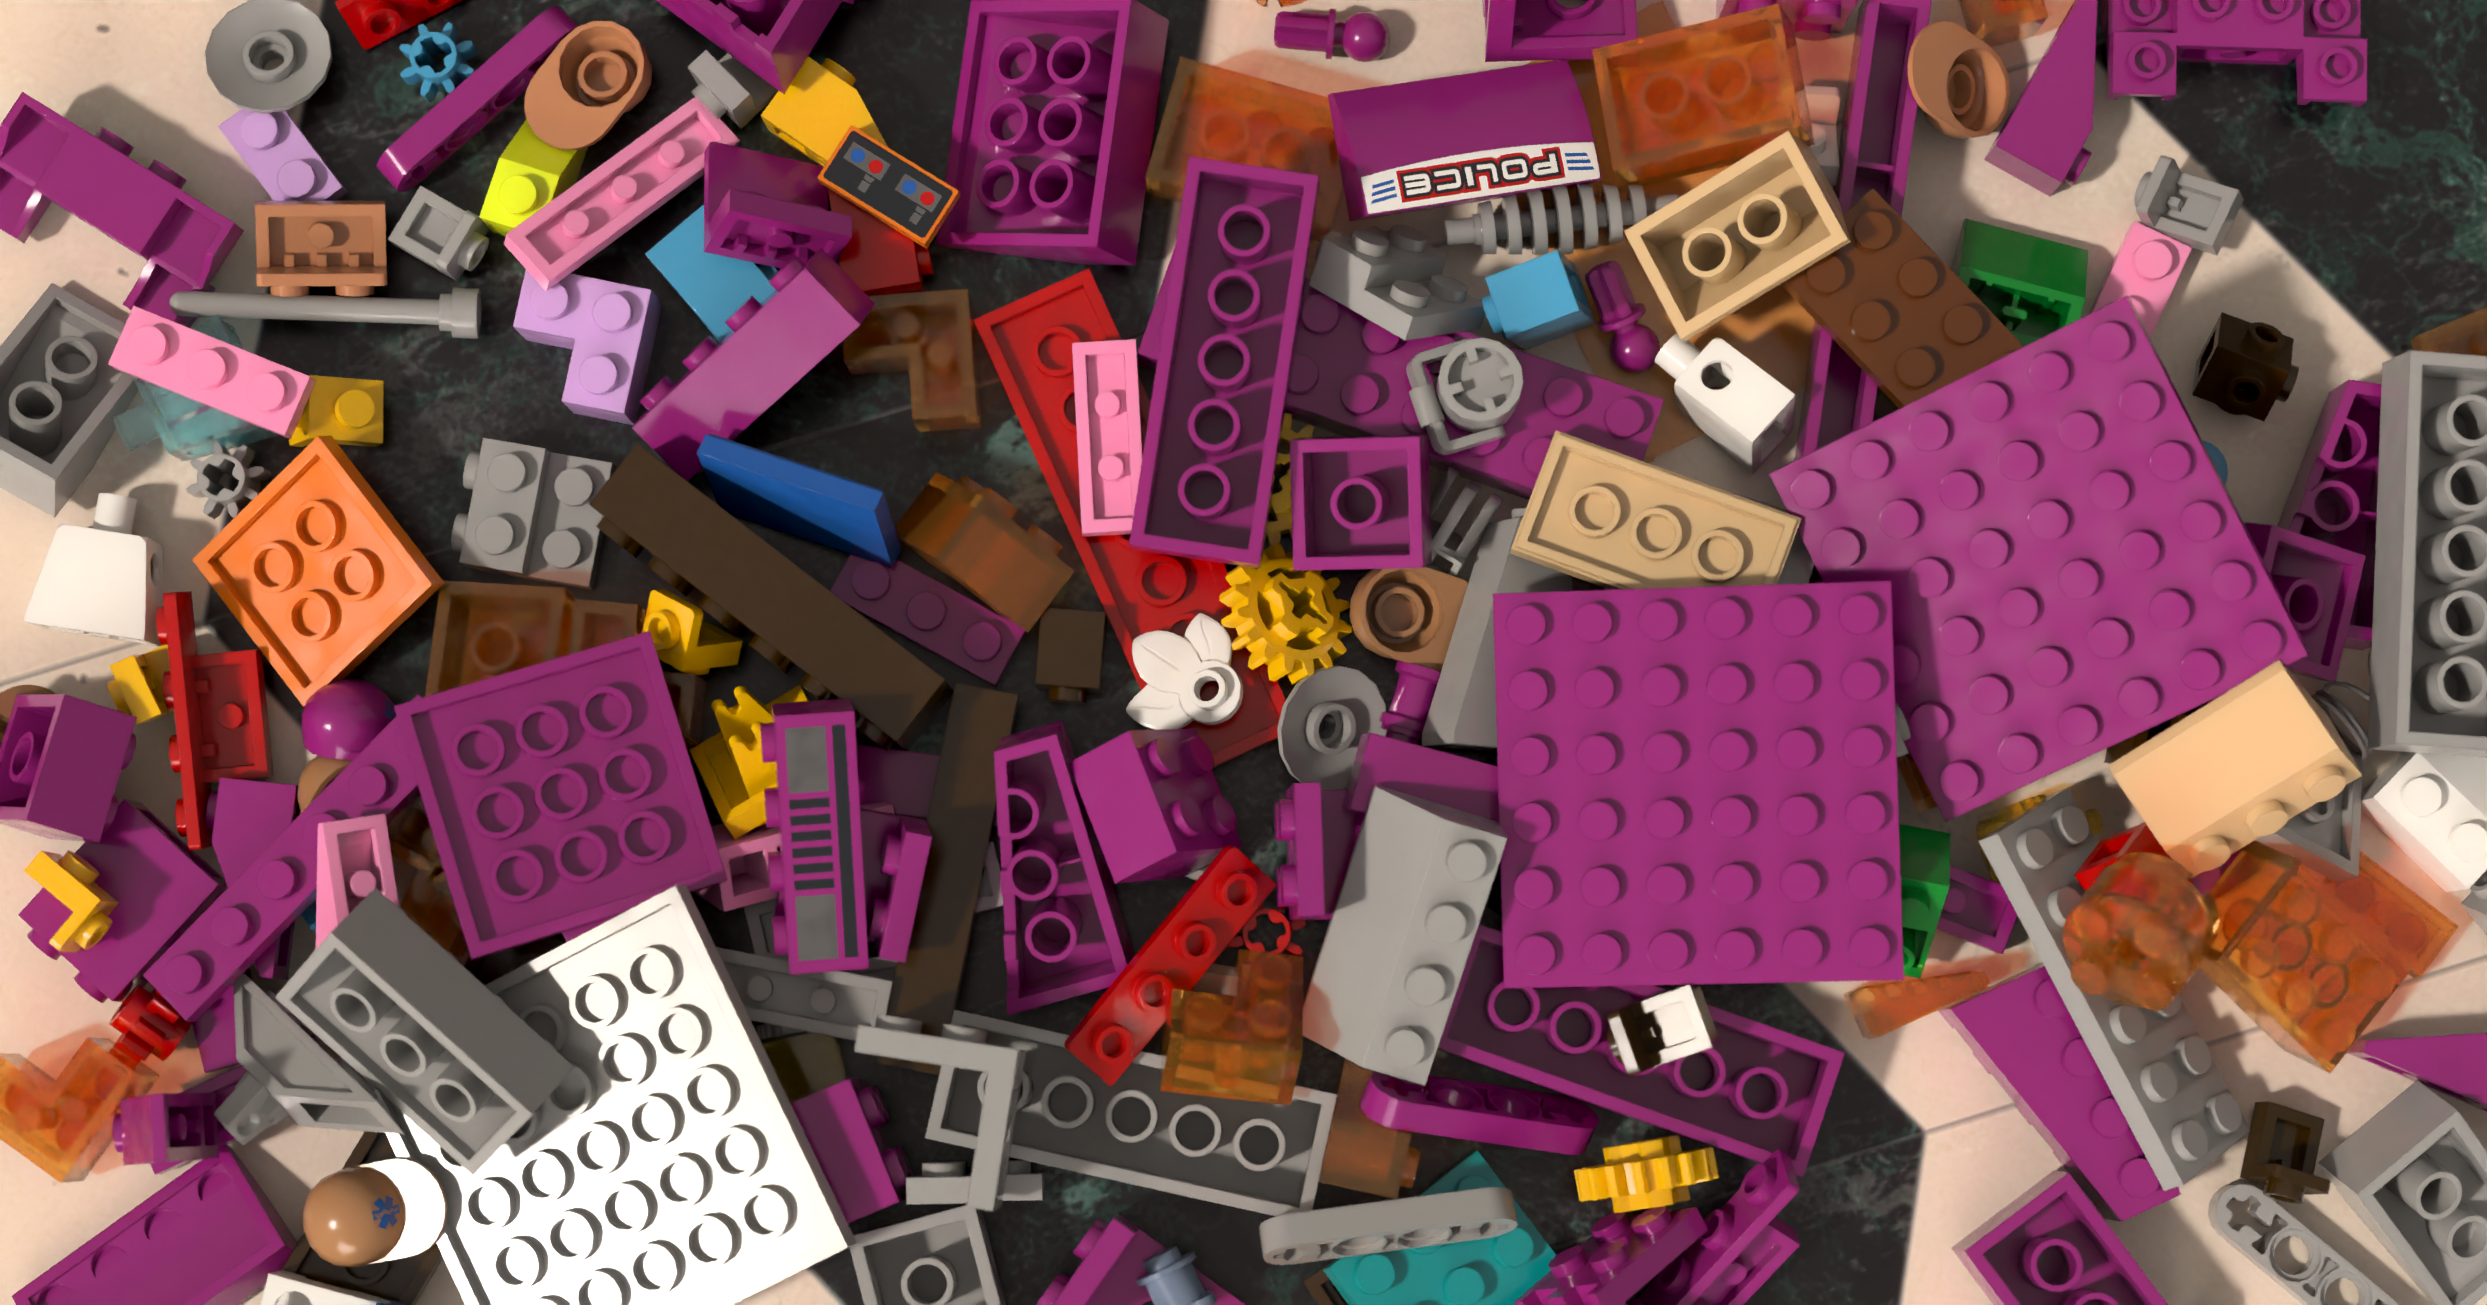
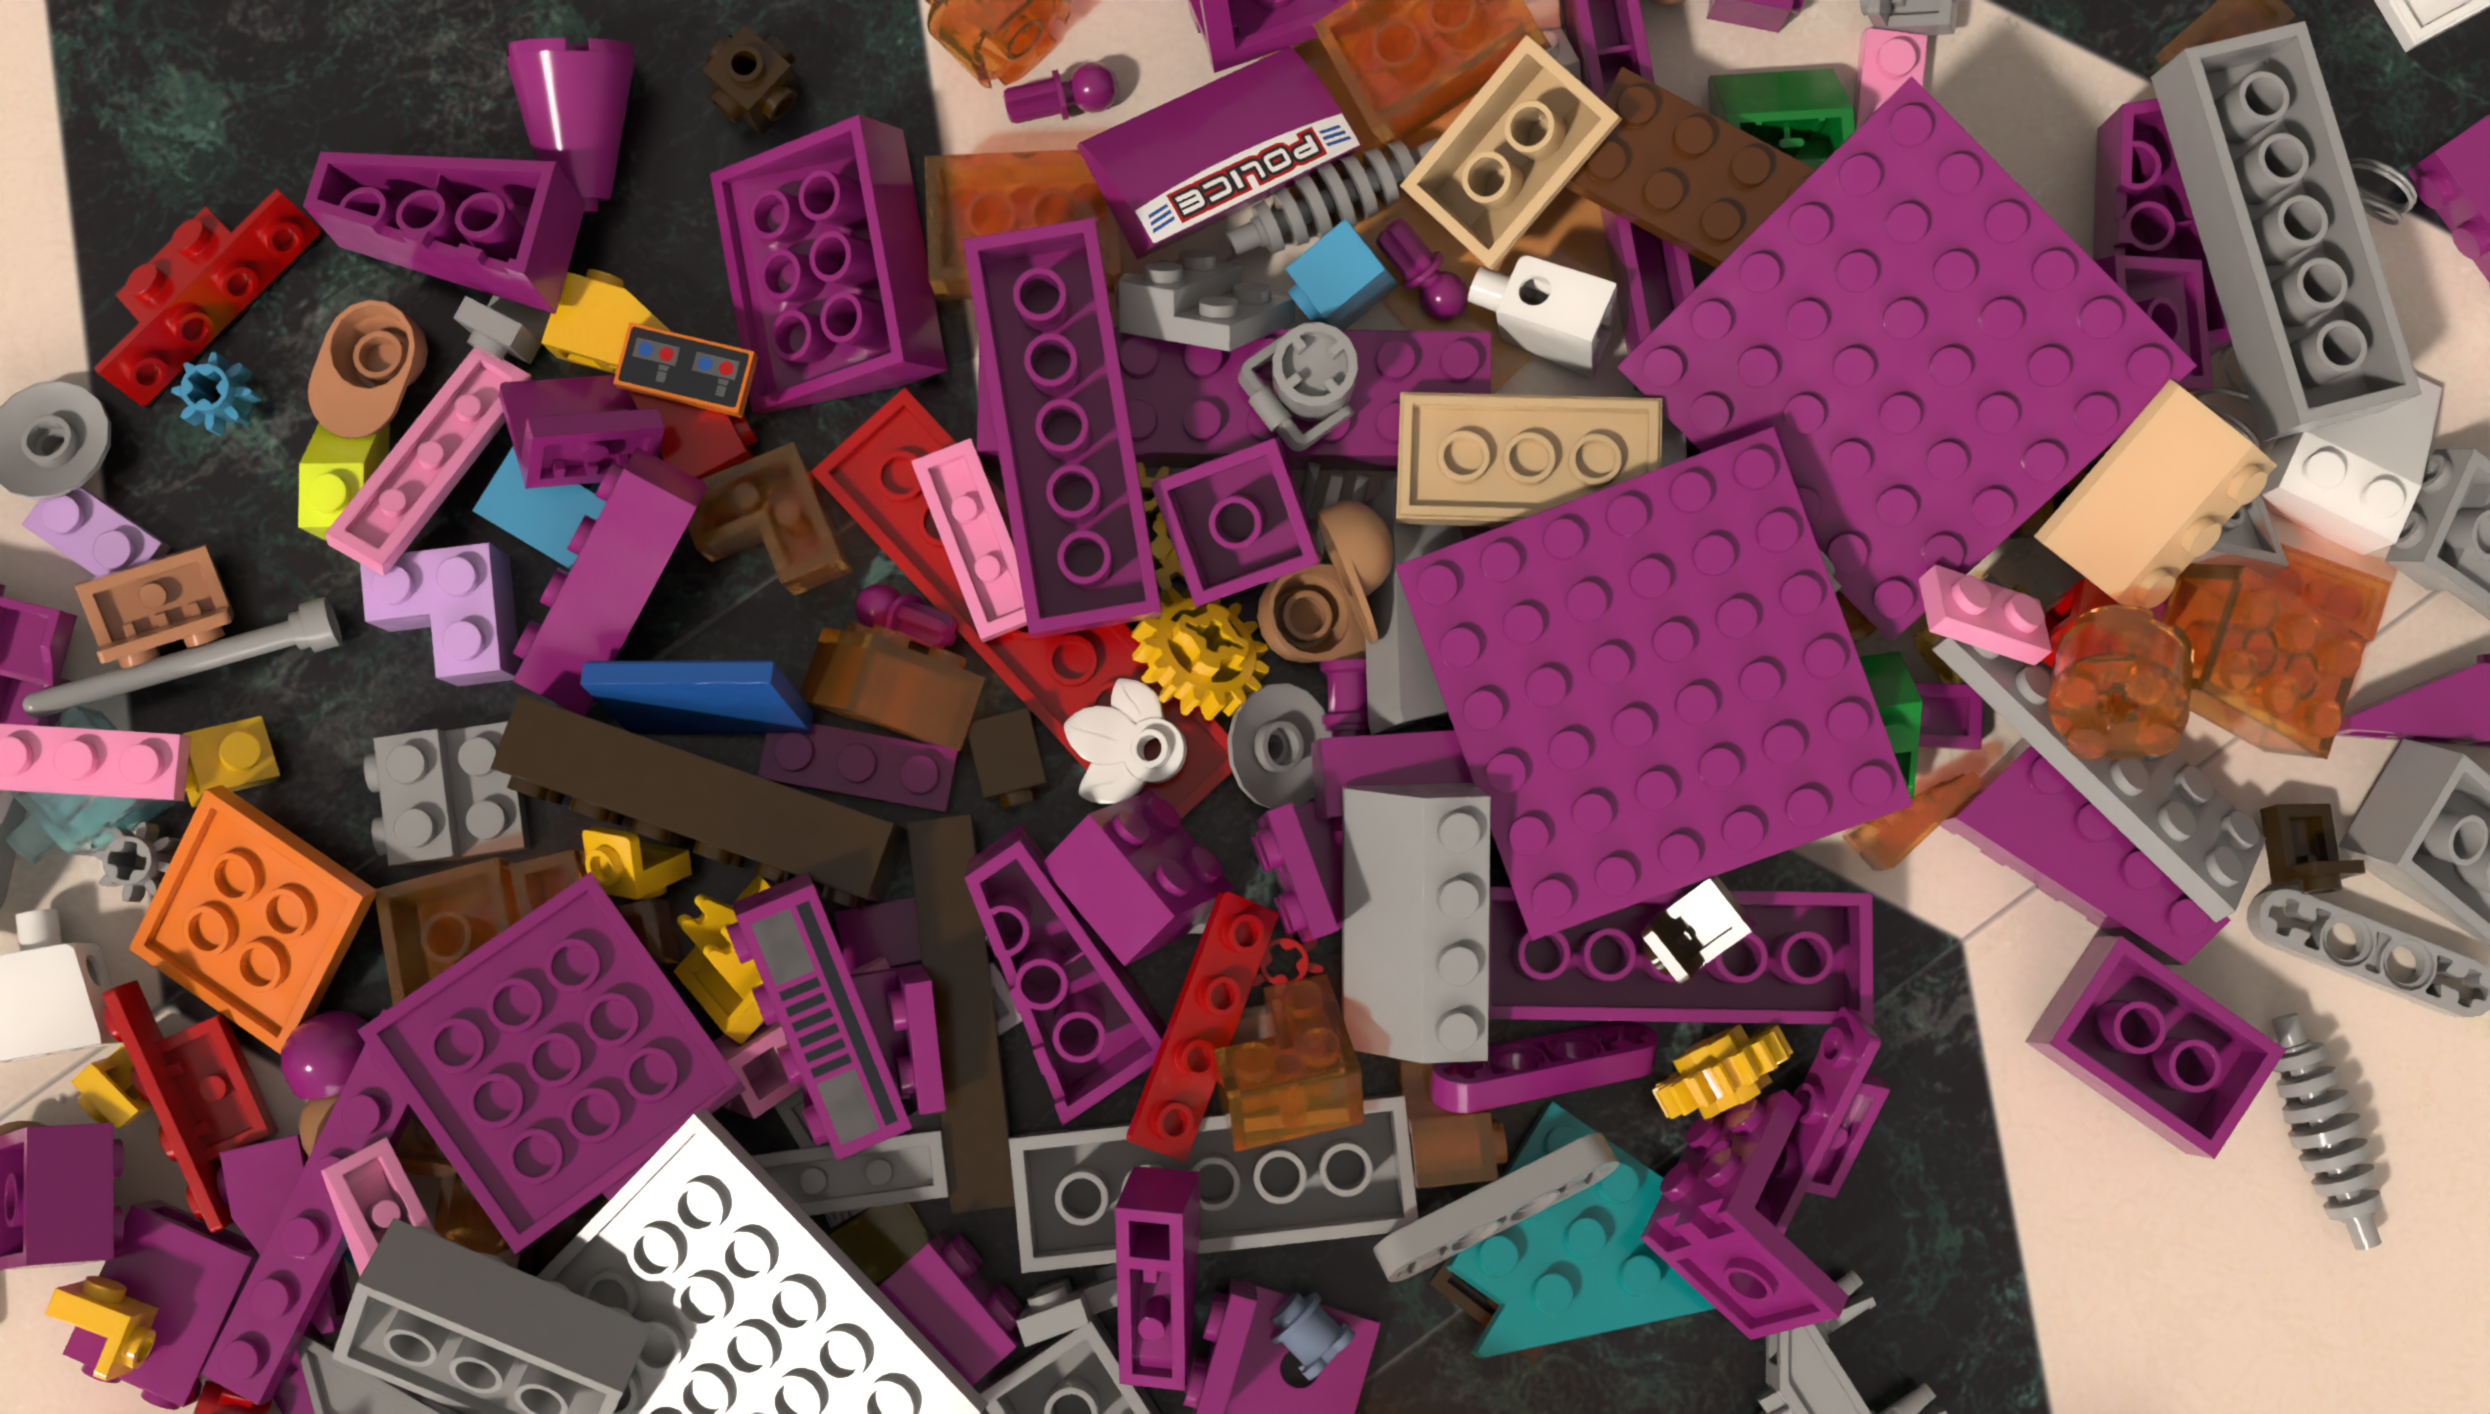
camera: 25 degrees left, 0 degrees up
(441, 234) = (271, 557): light grey bracket -> none
(474, 102) = (260, 423): magenta beam -> none
(966, 1050) = (1032, 1179): light grey bracket -> none
(1019, 485) = (905, 613): none -> magenta axle
(1050, 1180) = (1157, 1275): none -> magenta slope
(1467, 569) = (1359, 553): none -> medium nougat cap
(2037, 825) = (1984, 615): none -> bright pink plate
(2245, 367) = (2020, 125): dark brown brick -> none

